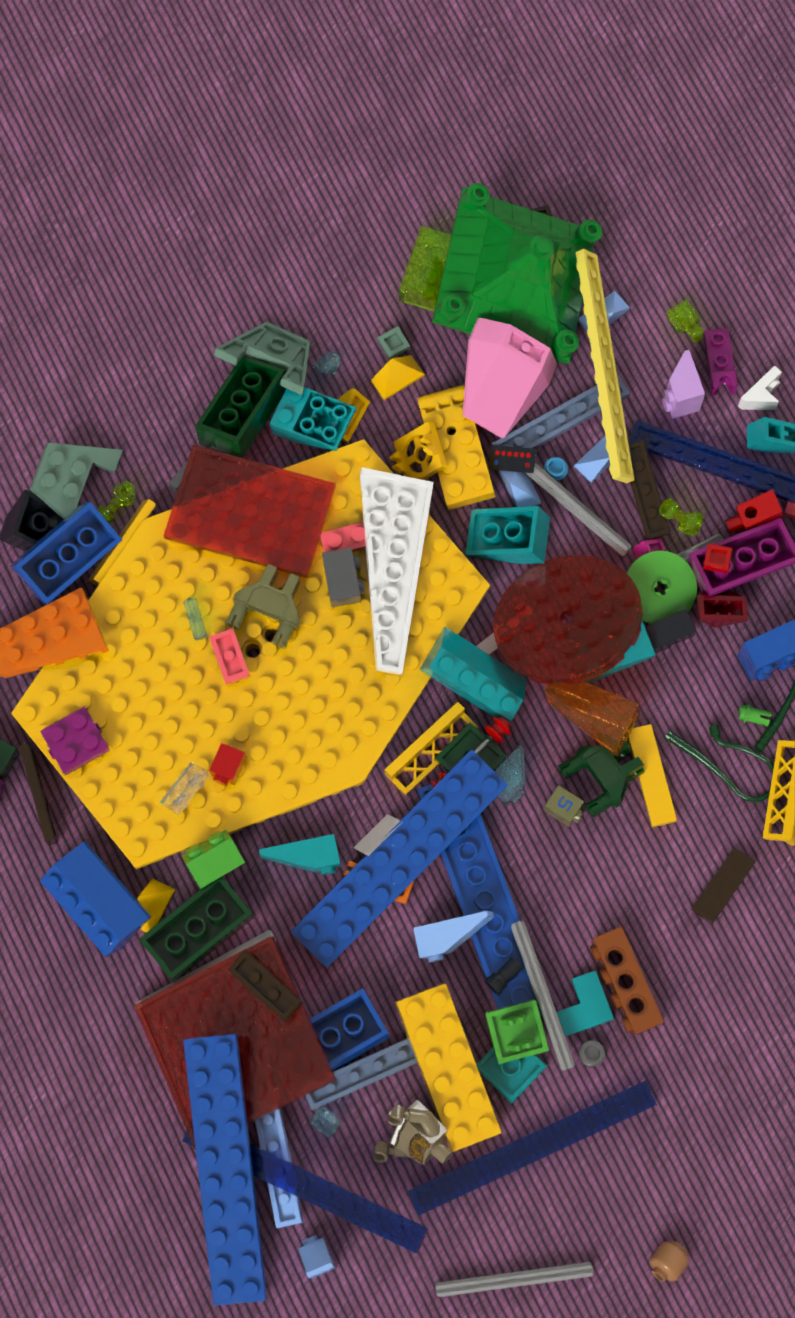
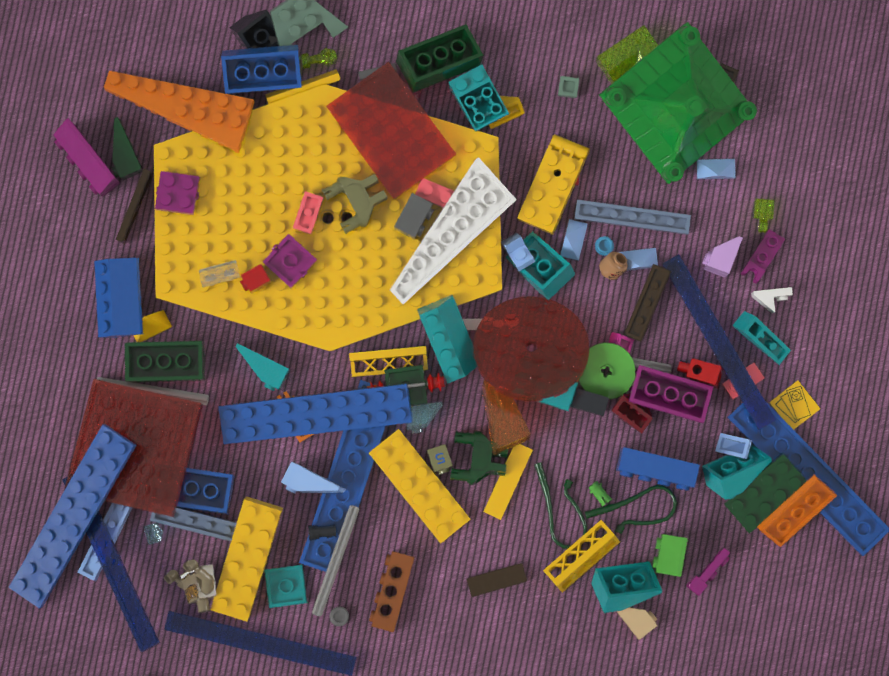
camera: 40 degrees right, 10 degrees up
(193, 614) = (304, 176): clear light blue piece -> none
(212, 858) = (204, 328): bright green slope -> none
(248, 719) = (289, 261): none -> magenta plate
(265, 986) = (174, 430): dark brown tile -> none
(274, 347) = (491, 33): sand green wing -> none
(316, 1257) = (85, 608): light blue slope -> none
(328, 363) = (517, 68): clear light blue slope -> none
(377, 835) = (305, 390): white sticker -> none
(396, 376) = (554, 110): yellow slope -> none
(432, 449) = (535, 177): yellow piece -> none
(475, 538) = (517, 251): none -> light blue slope
(503, 375) = (615, 163): bright pink wedge -> none
(512, 459) = (580, 219): black sticker -> none
(516, 1031) = (303, 570): bright green plate -> none
(565, 850) = (419, 486): none -> yellow plate
(579, 510) = (595, 276): light grey axle -> none
(581, 479) = (613, 265): none -> medium nougat head
(592, 1008) = (358, 591): teal tile -> none
(605, 367) = (684, 205): light yellow plate -> none
(688, 522) = (657, 343): clear neon green leg -> none
(717, 558) = (652, 382): red tile -> none

